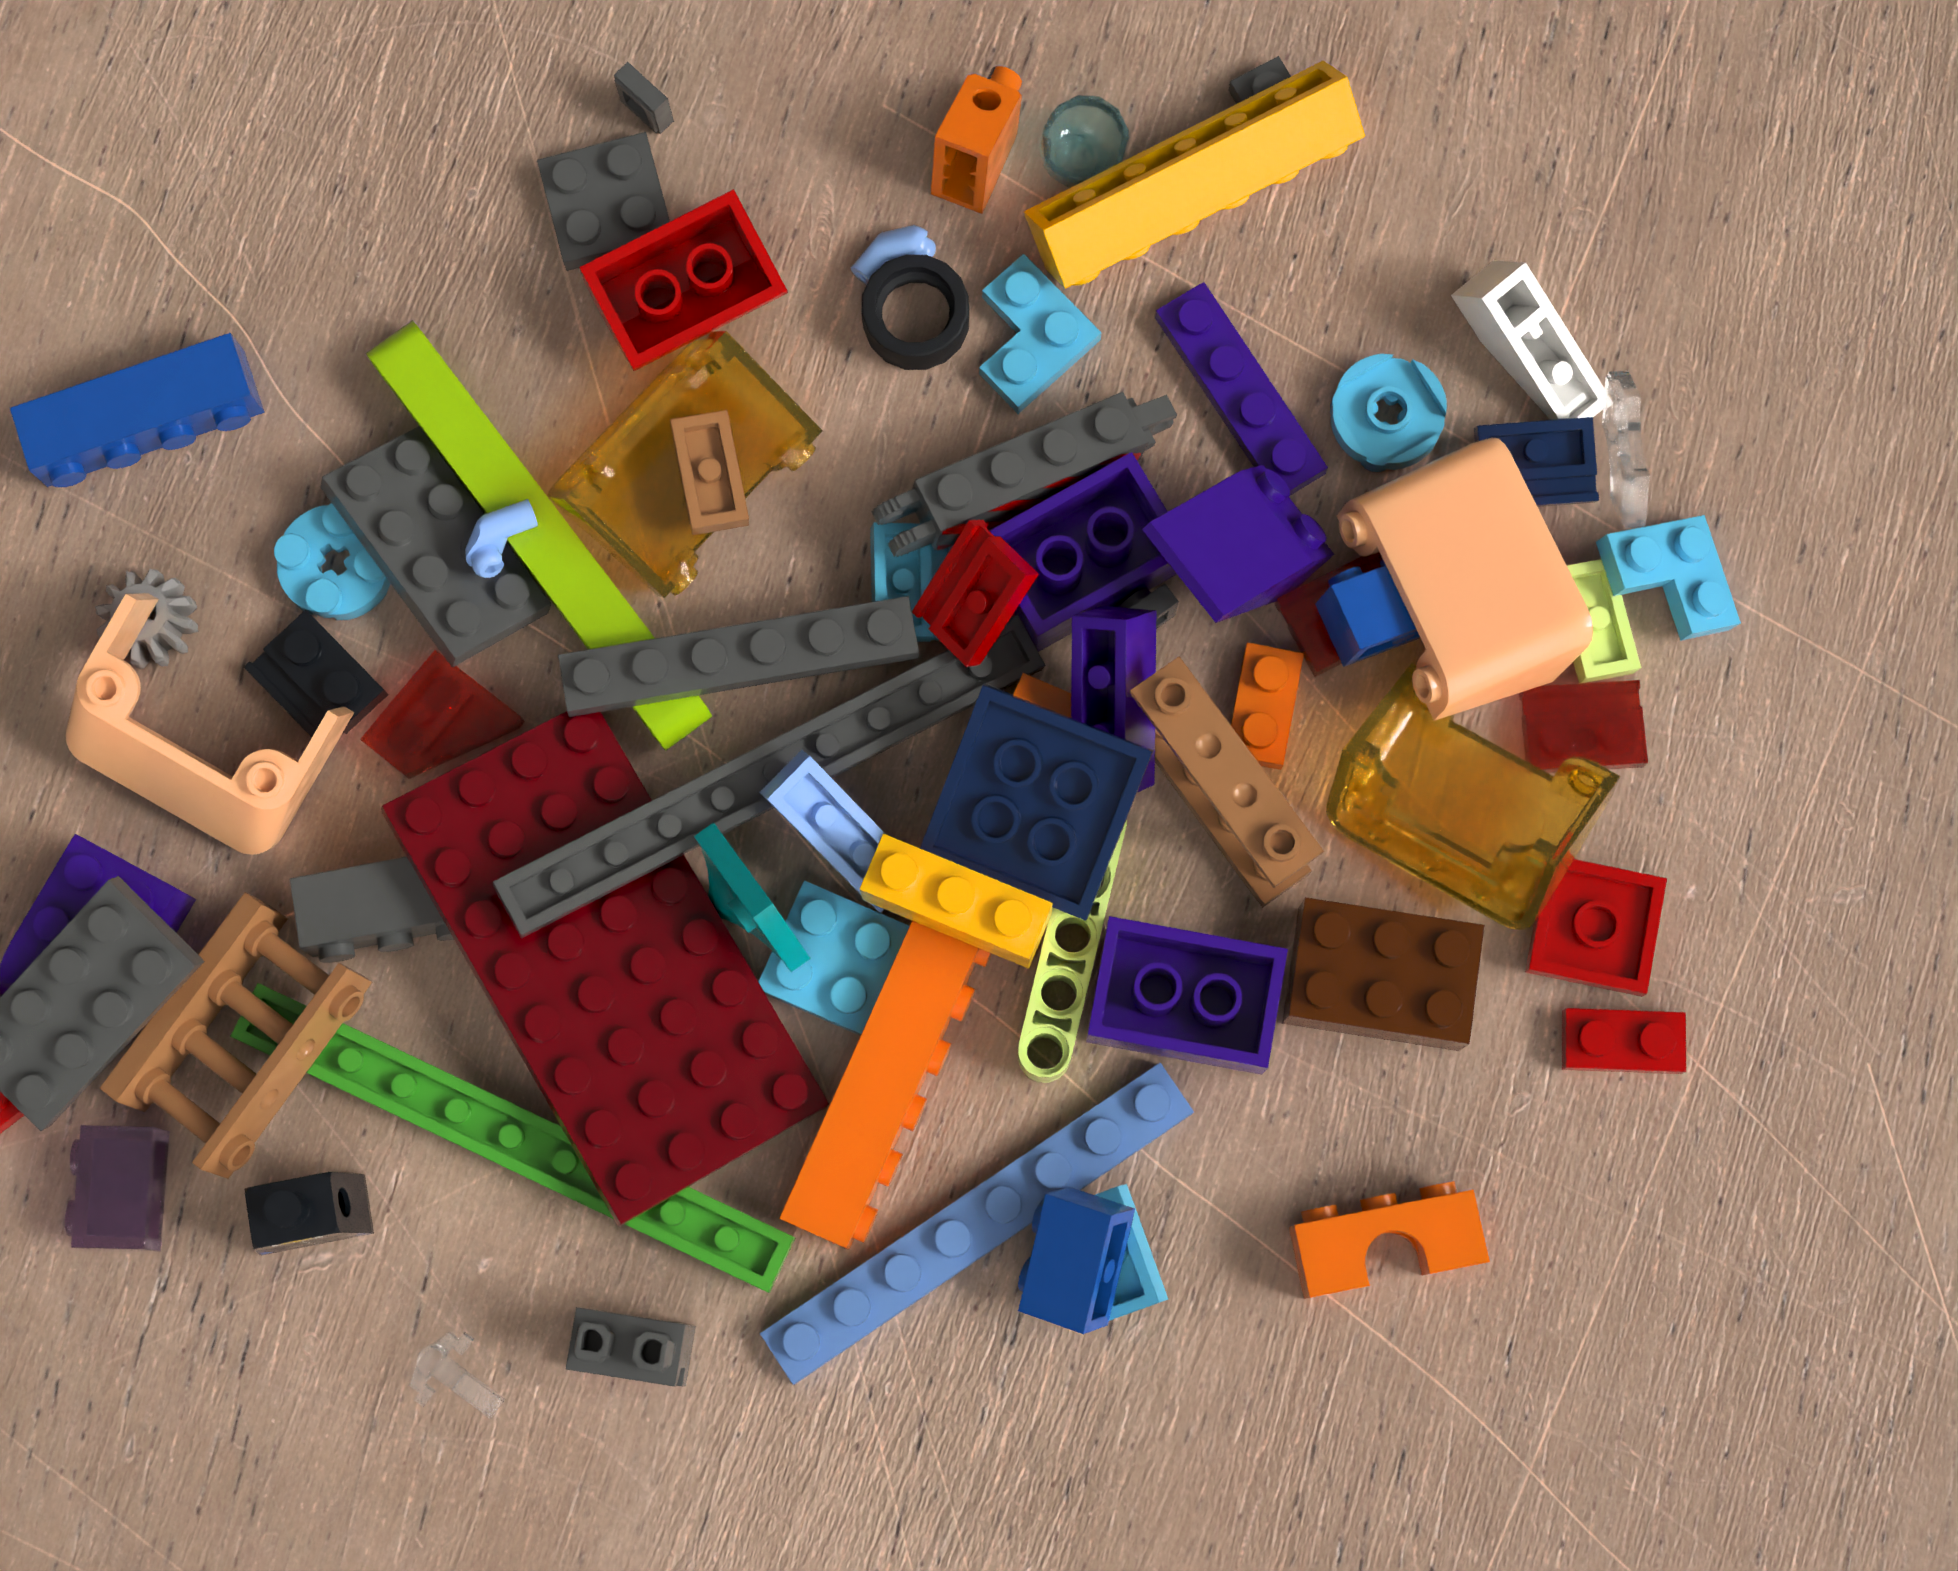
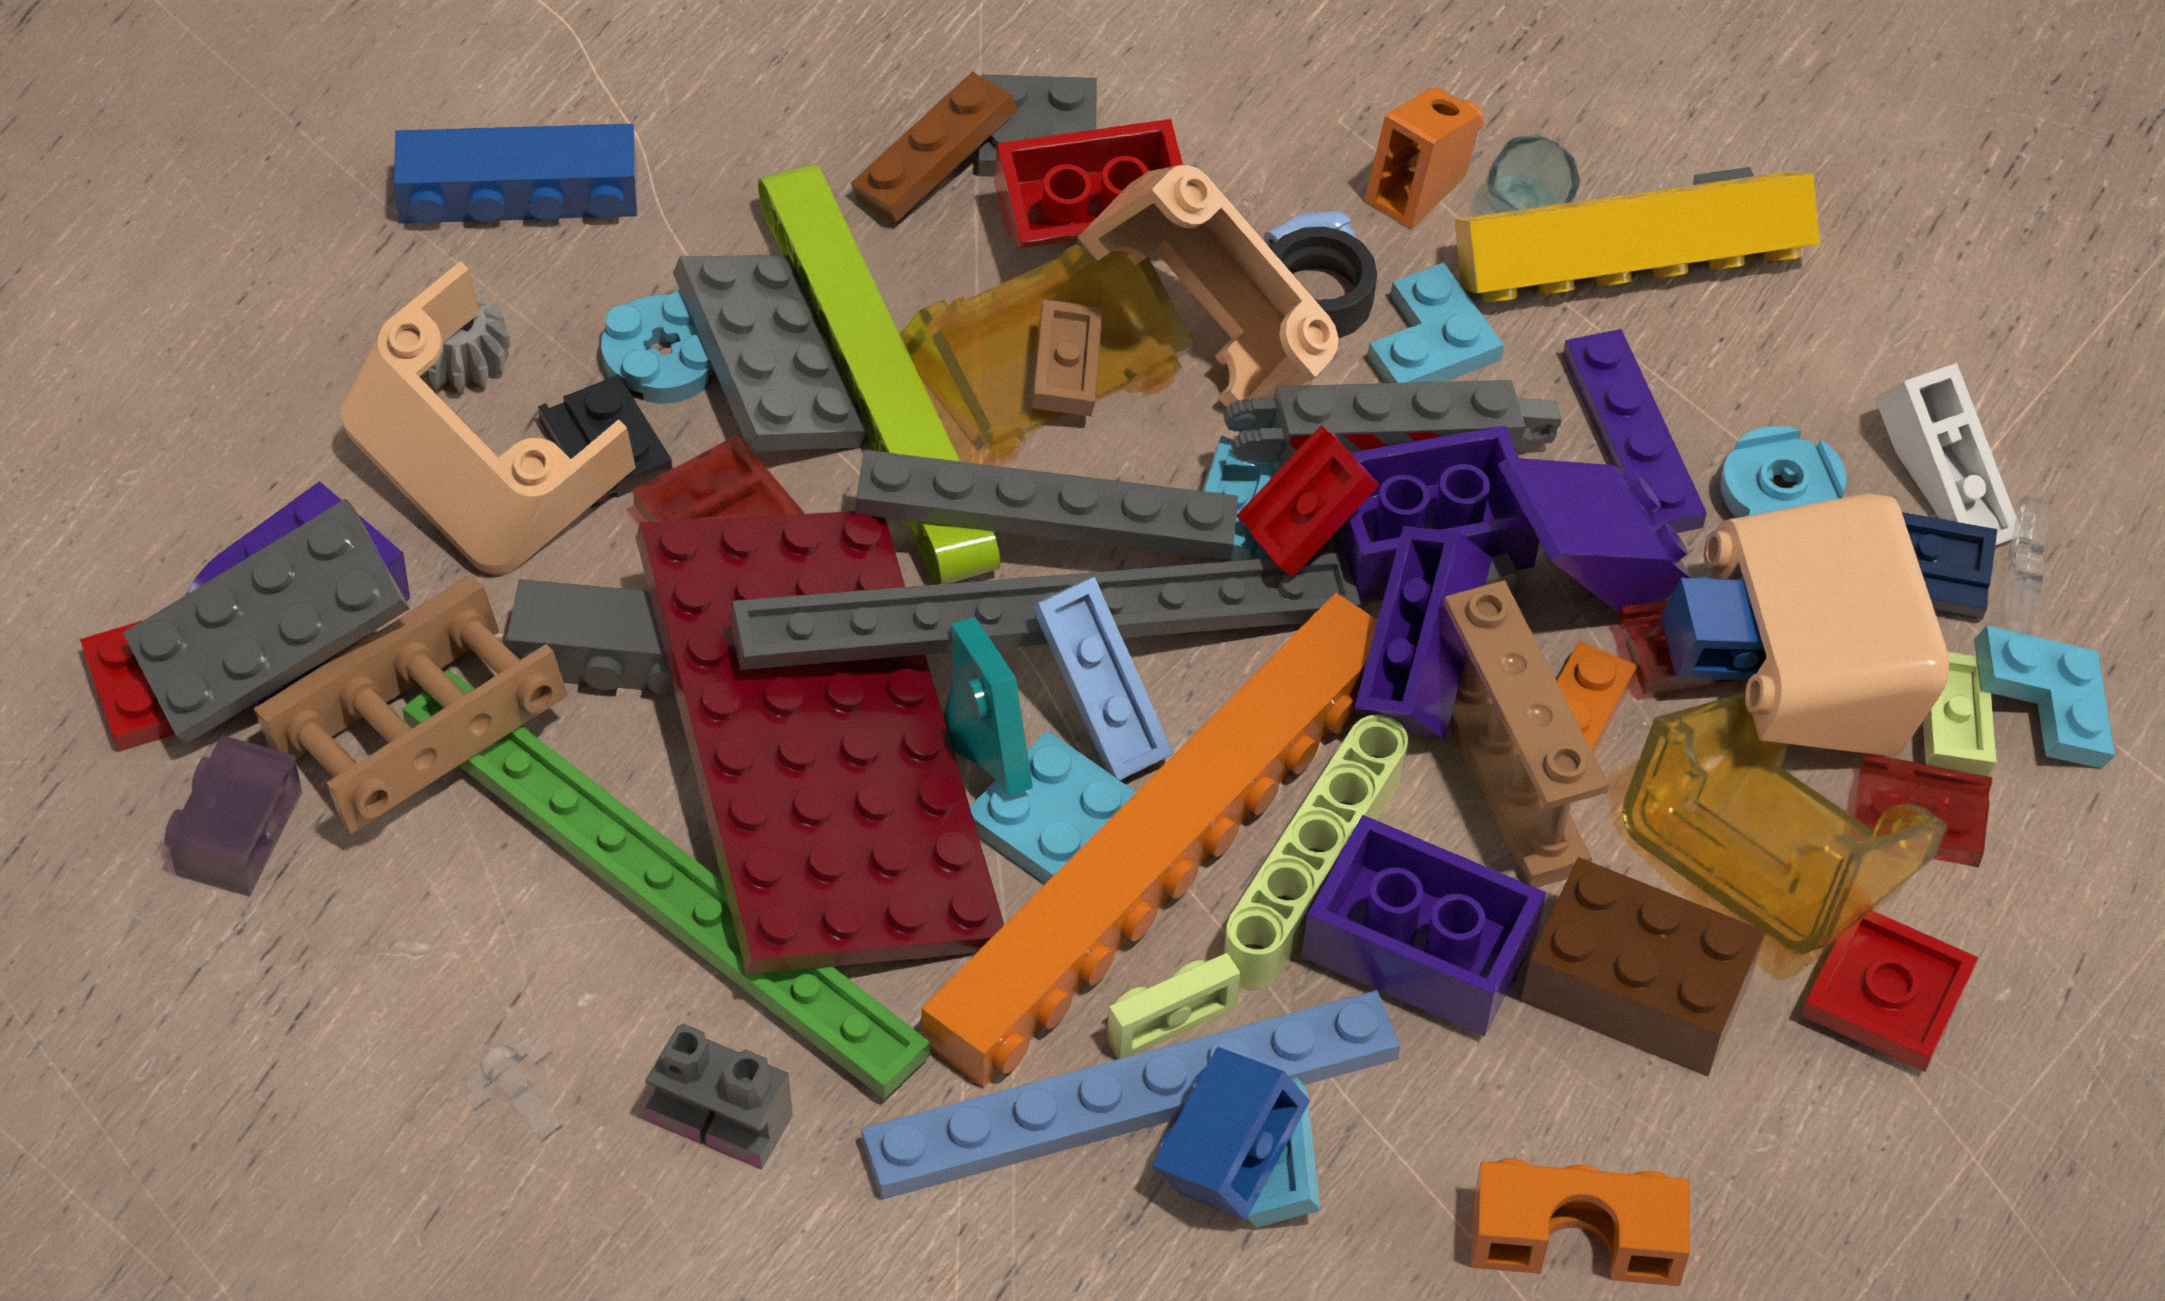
camera: 10 degrees right, 25 degrees down
(307, 1211) = (421, 878): black torso -> none
(491, 534) = (831, 341): light blue arm -> none
(518, 262) = (934, 146): none -> dark orange plate
(643, 98) = (1103, 49): dark grey tile -> none
(894, 411) = (1272, 320): none -> light nougat windscreen
(956, 901) = (1205, 754): yellow brick -> none
(1007, 1113) = (1173, 1006): none -> yellowish green plate
(1036, 800) = (1316, 686): dark blue plate -> none
(1624, 1041) = (1894, 1108): red plate -> none

